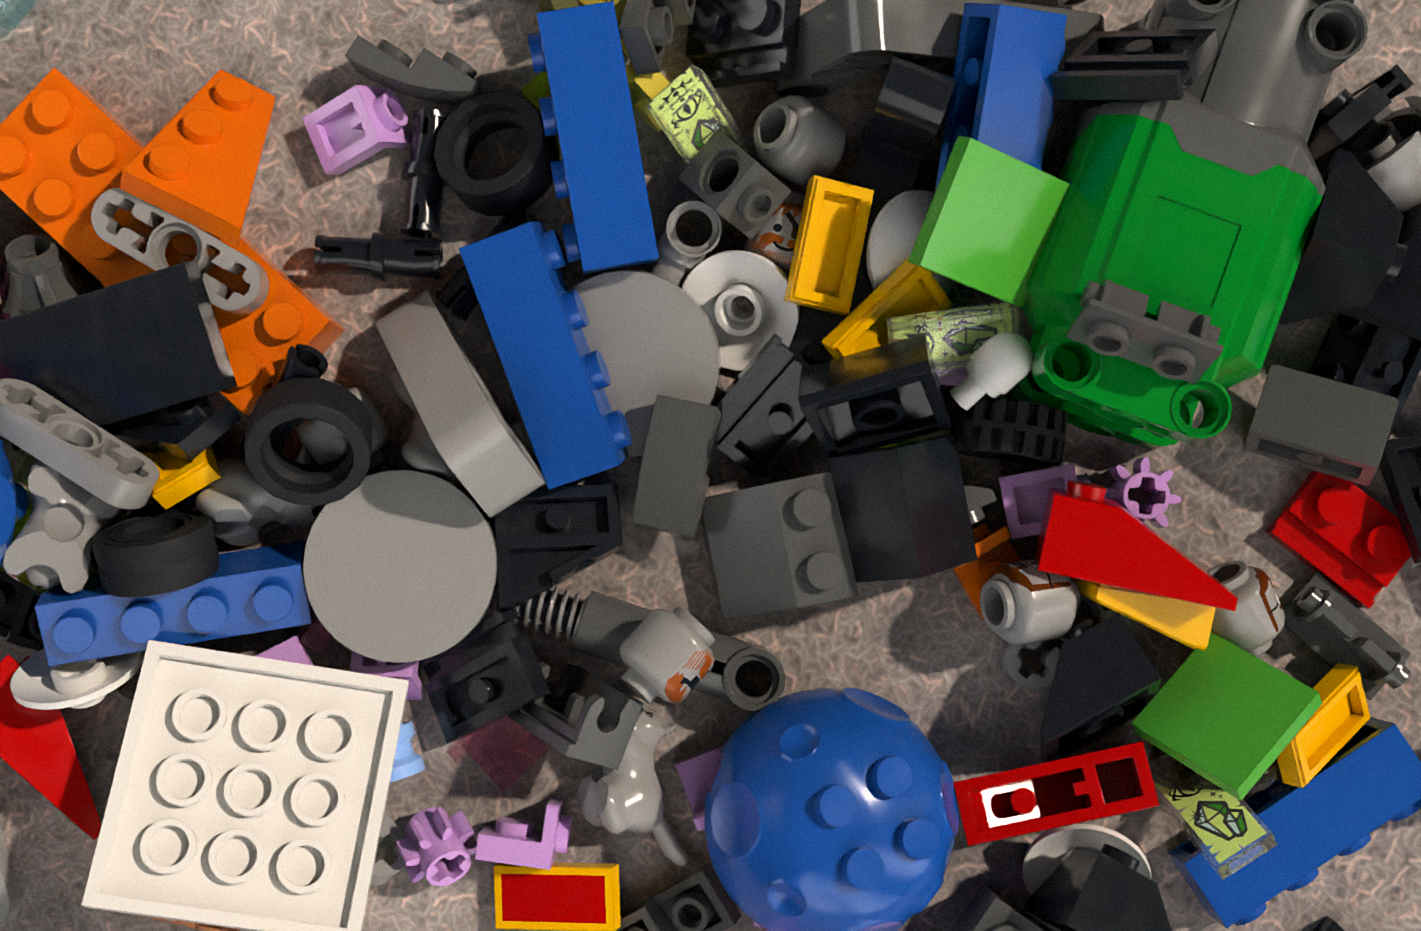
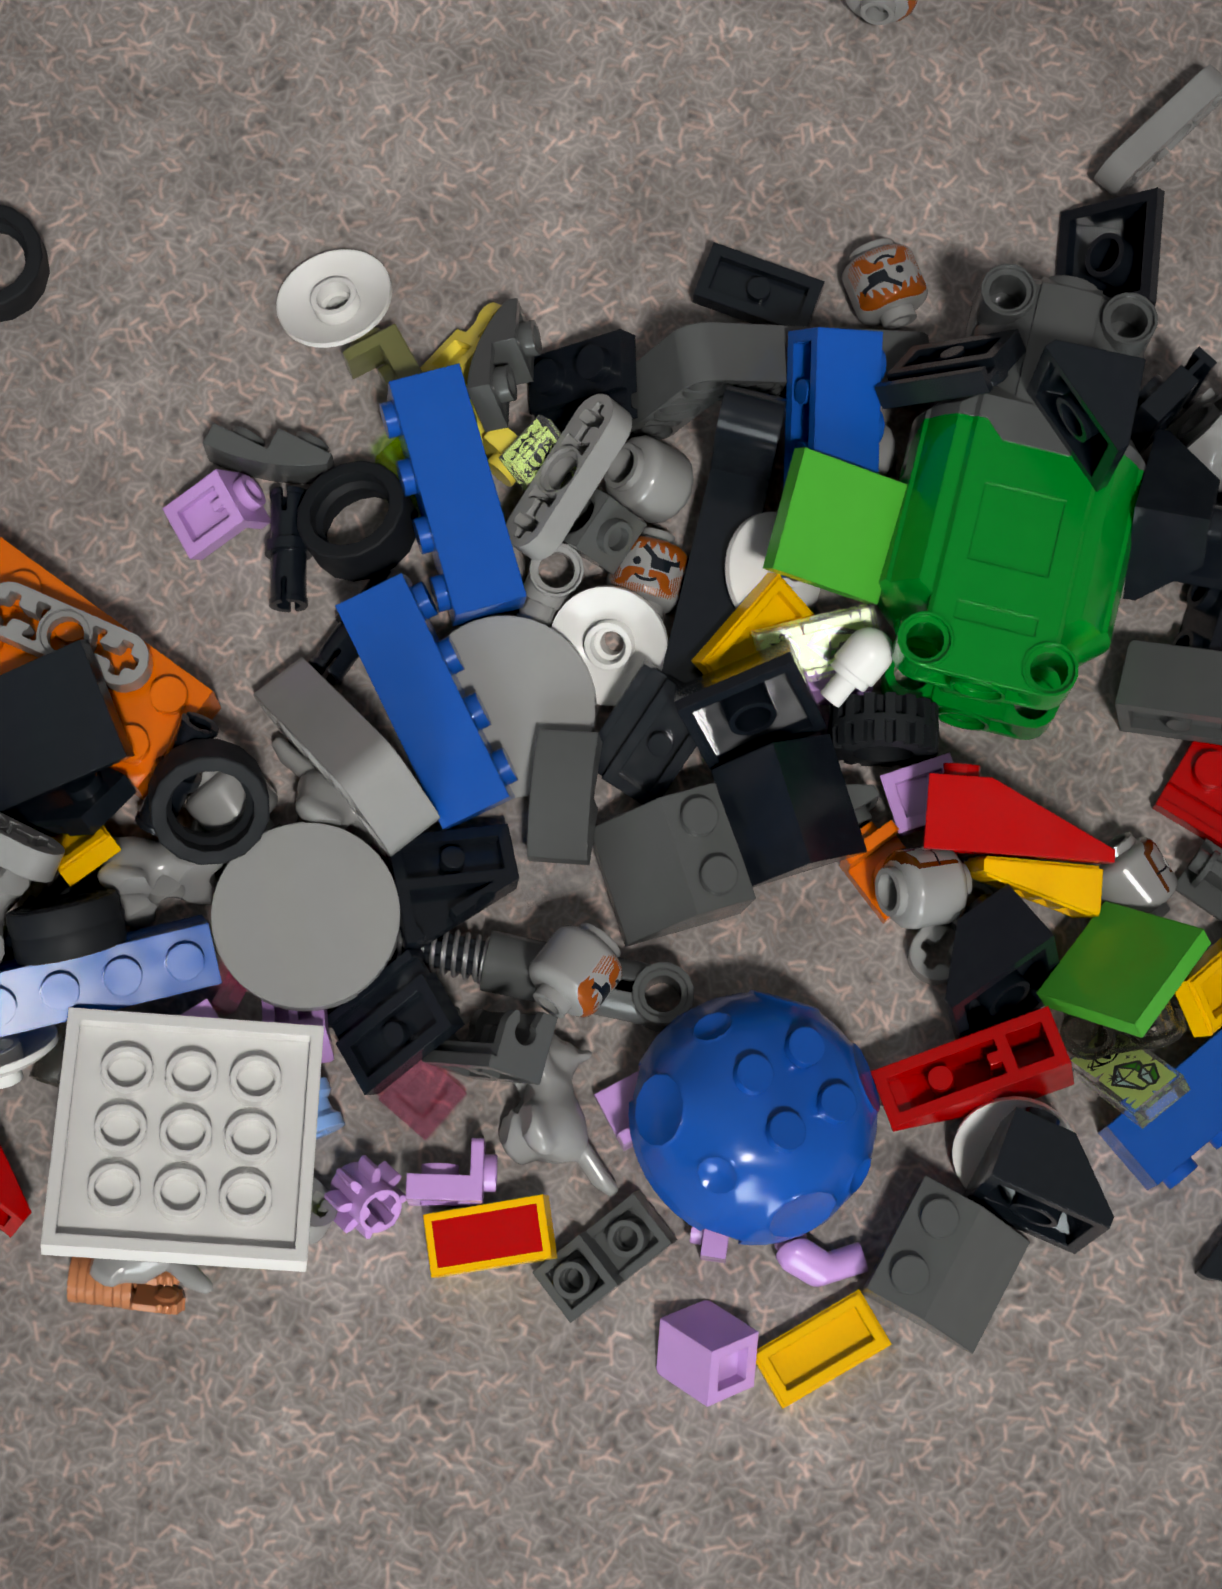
camera: 10 degrees left, 10 degrees down
(206, 157) = (81, 549): orange wing -> none
(378, 257) = (249, 632): black pin -> none
(755, 106) = (601, 430): none -> light grey beam
(828, 245) = (688, 571): yellow tile -> none
(1147, 482) = (1032, 770): lavender gear -> none
(1174, 344) = (1011, 611): dark grey hinge -> none
(1294, 127) = (1089, 403): none -> black slope

